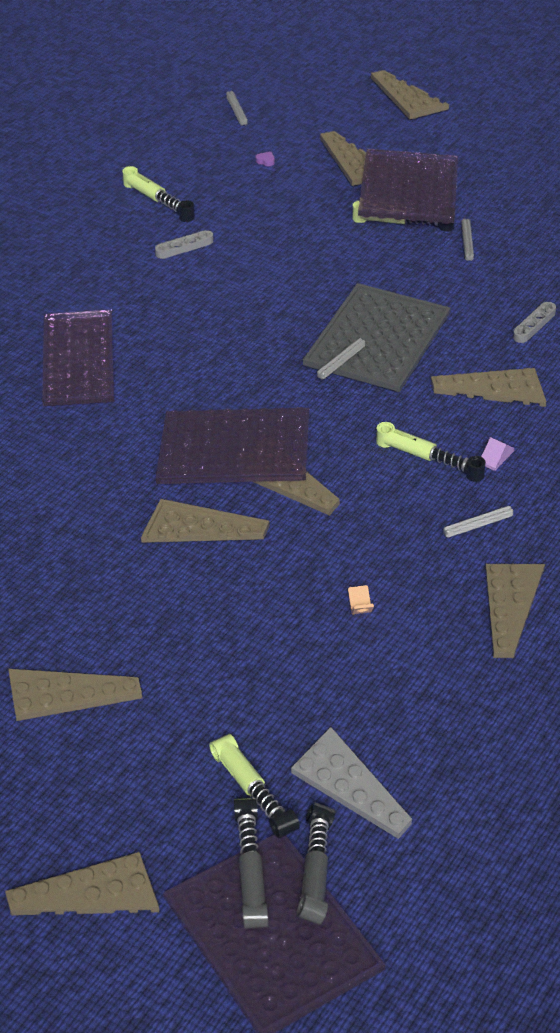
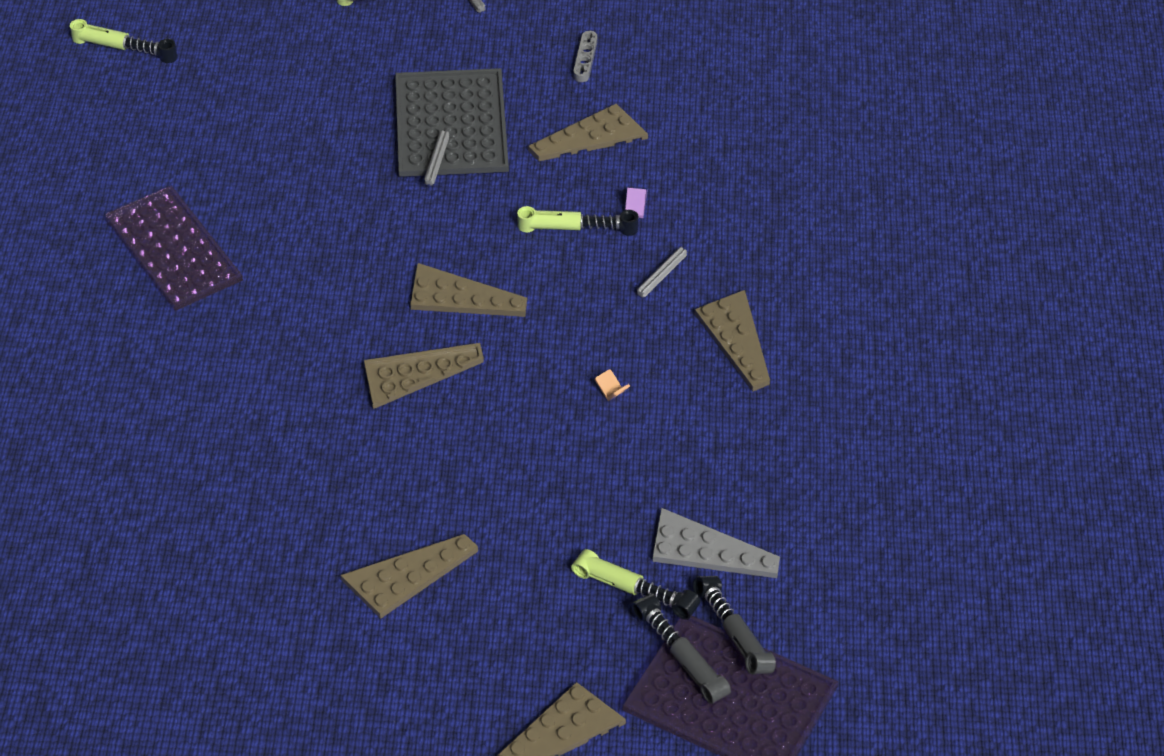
camera: 30 degrees left, 5 degrees up
(199, 240) = (176, 101): light grey beam -> none
(234, 446) = (395, 282): clear purple plate -> none

